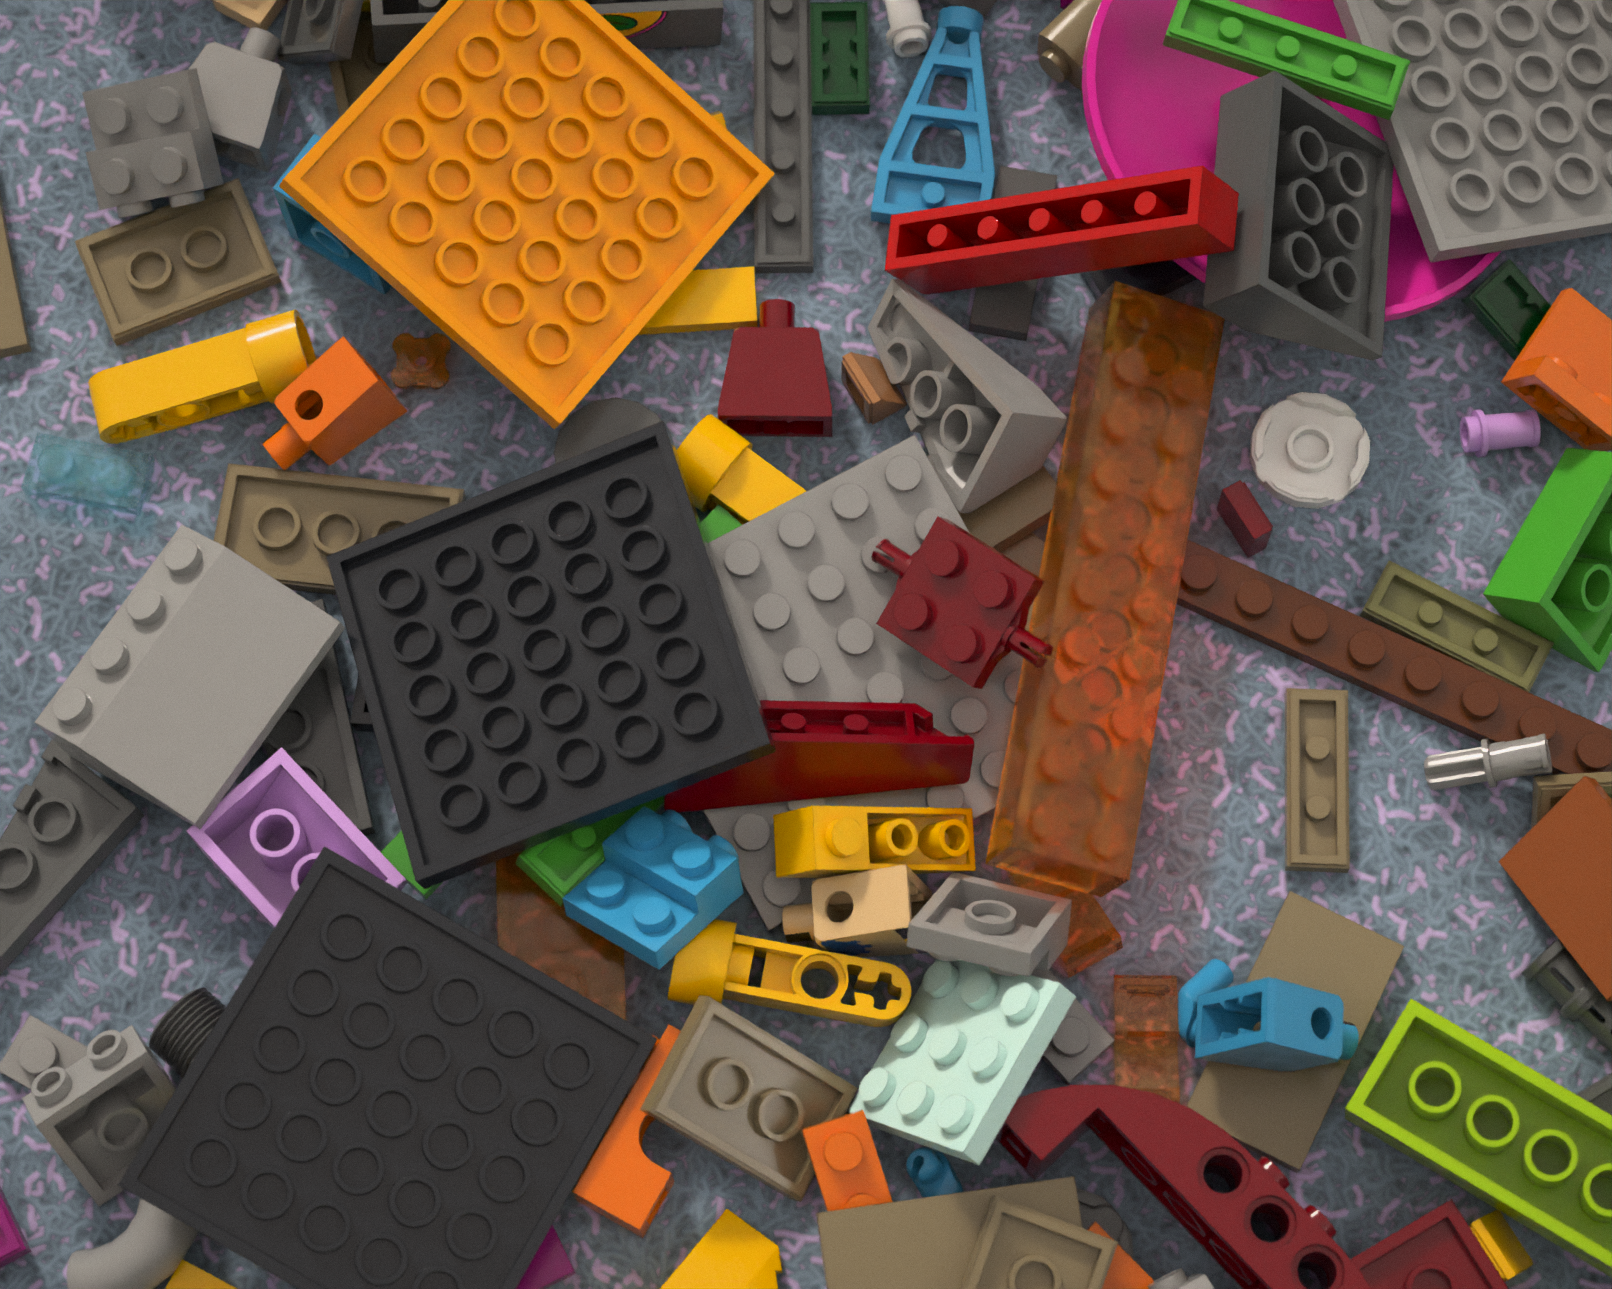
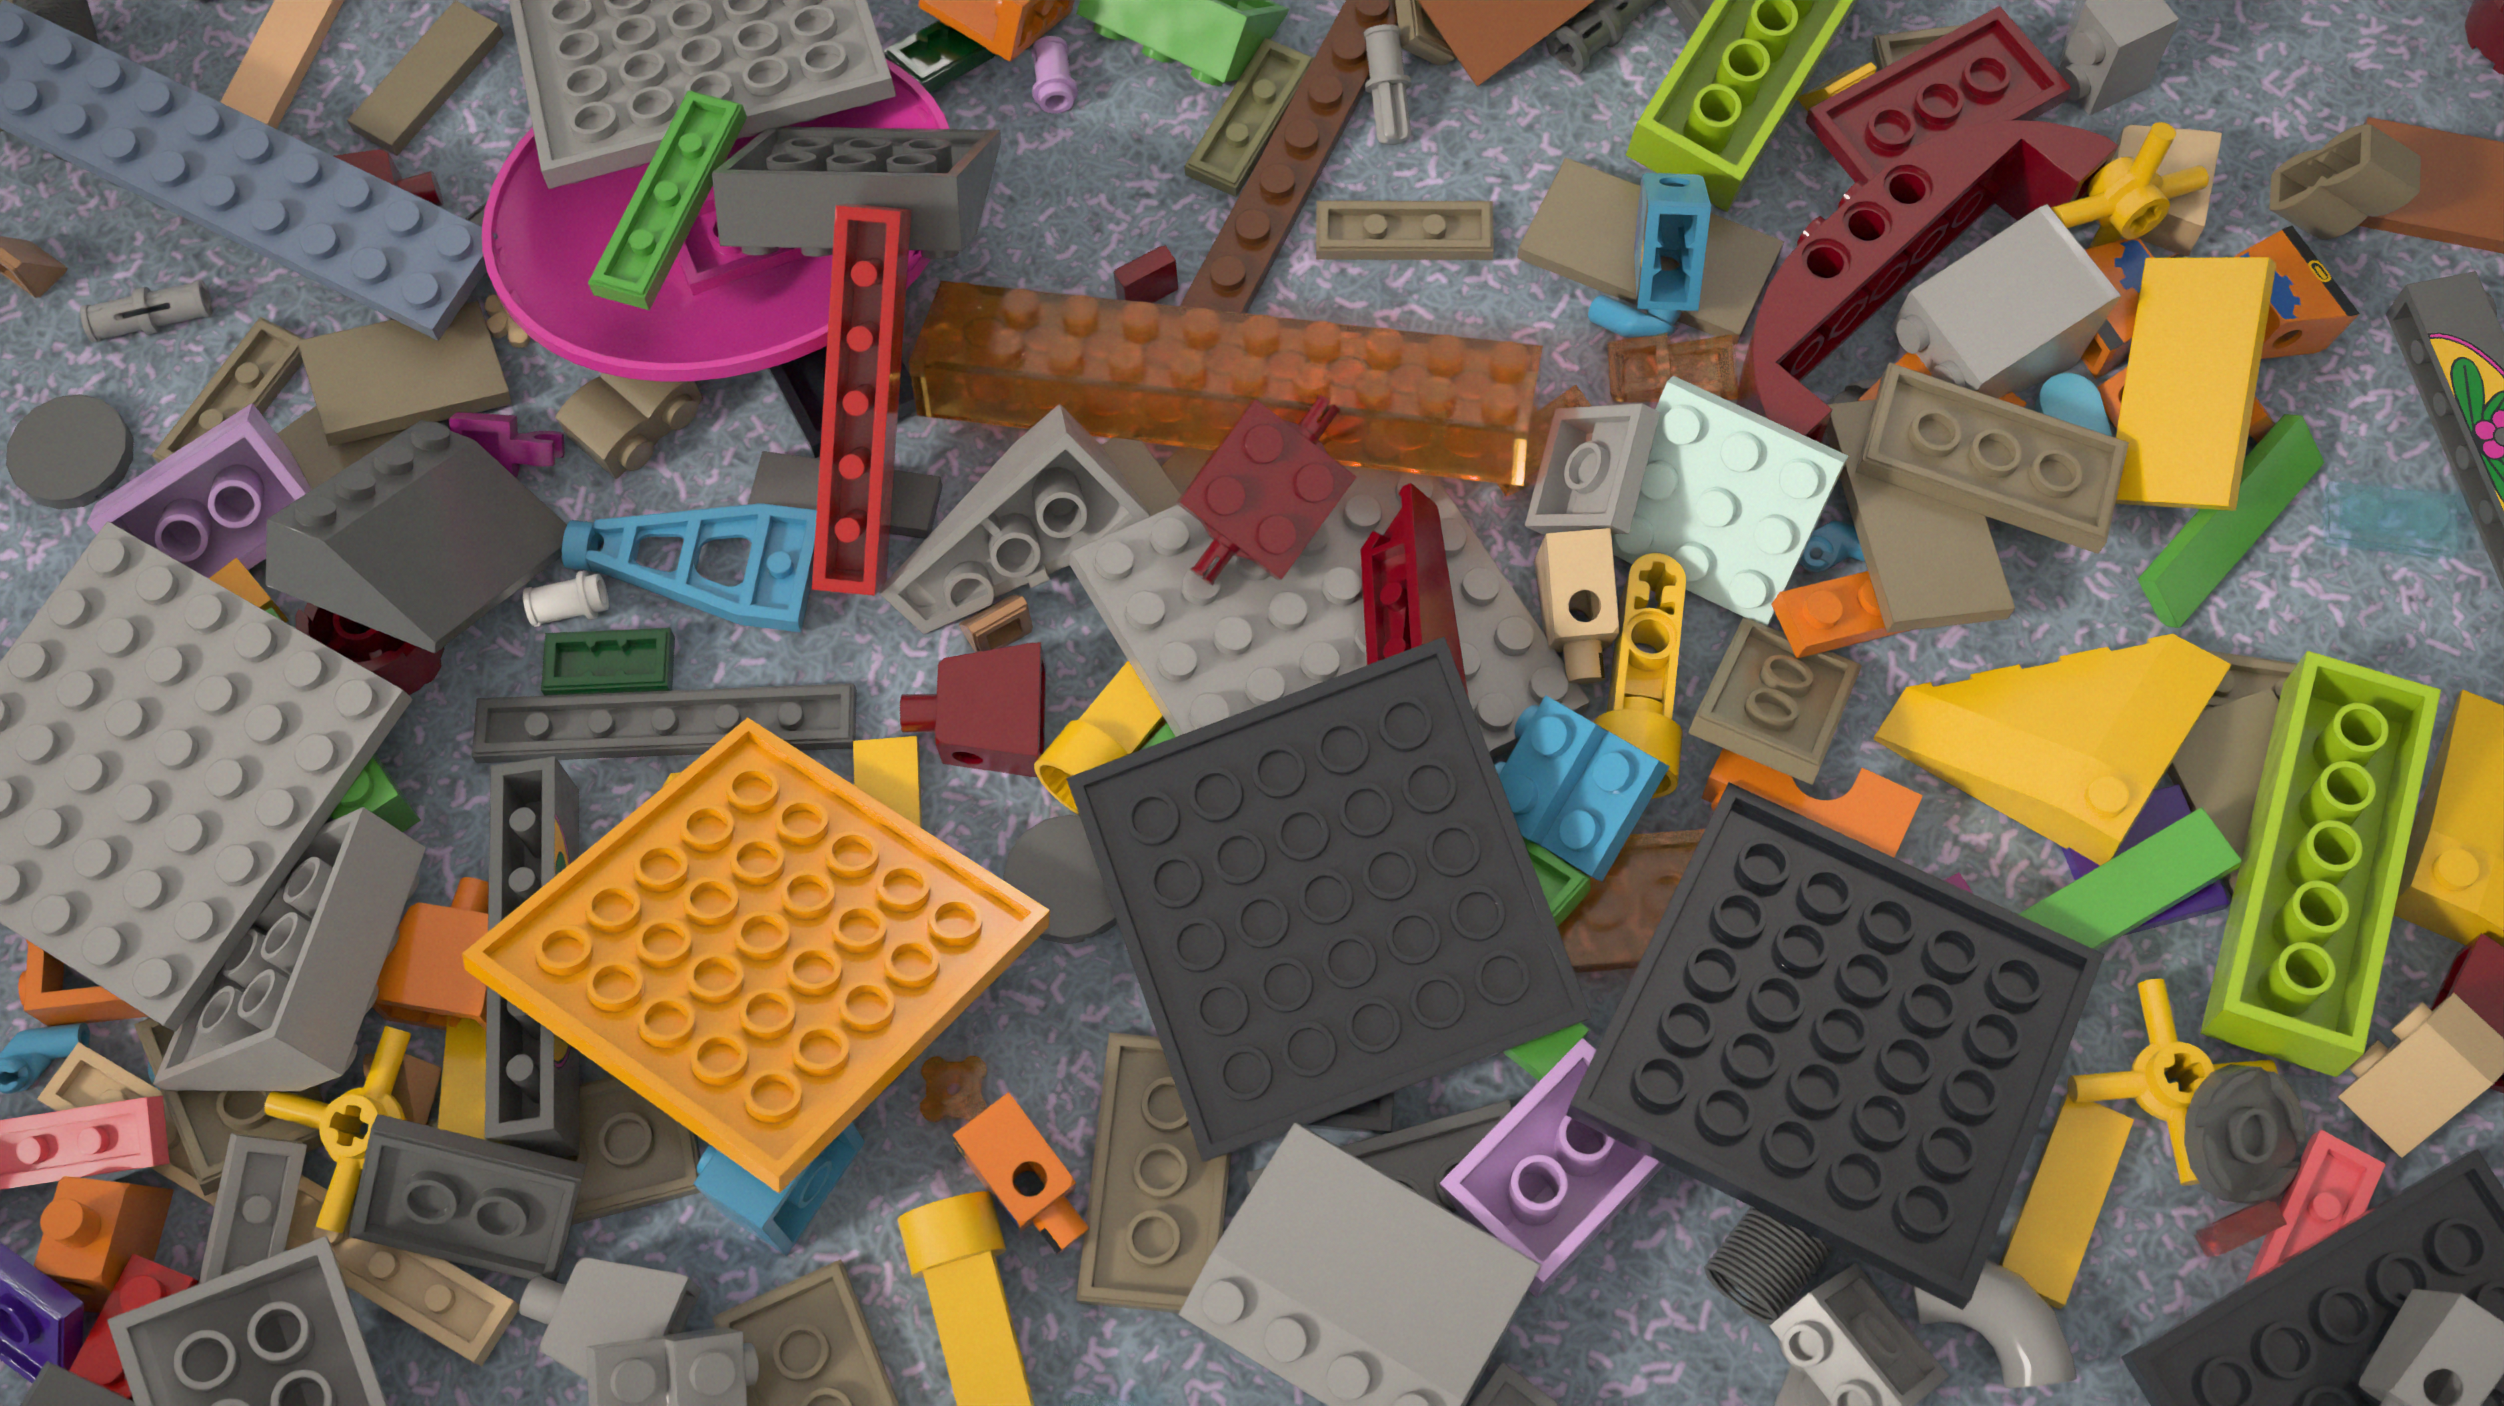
camera: 90 degrees left, 5 degrees down
(865, 838) = (1508, 592): yellow slope -> none
(1298, 465) = (1068, 252): white tile -> none

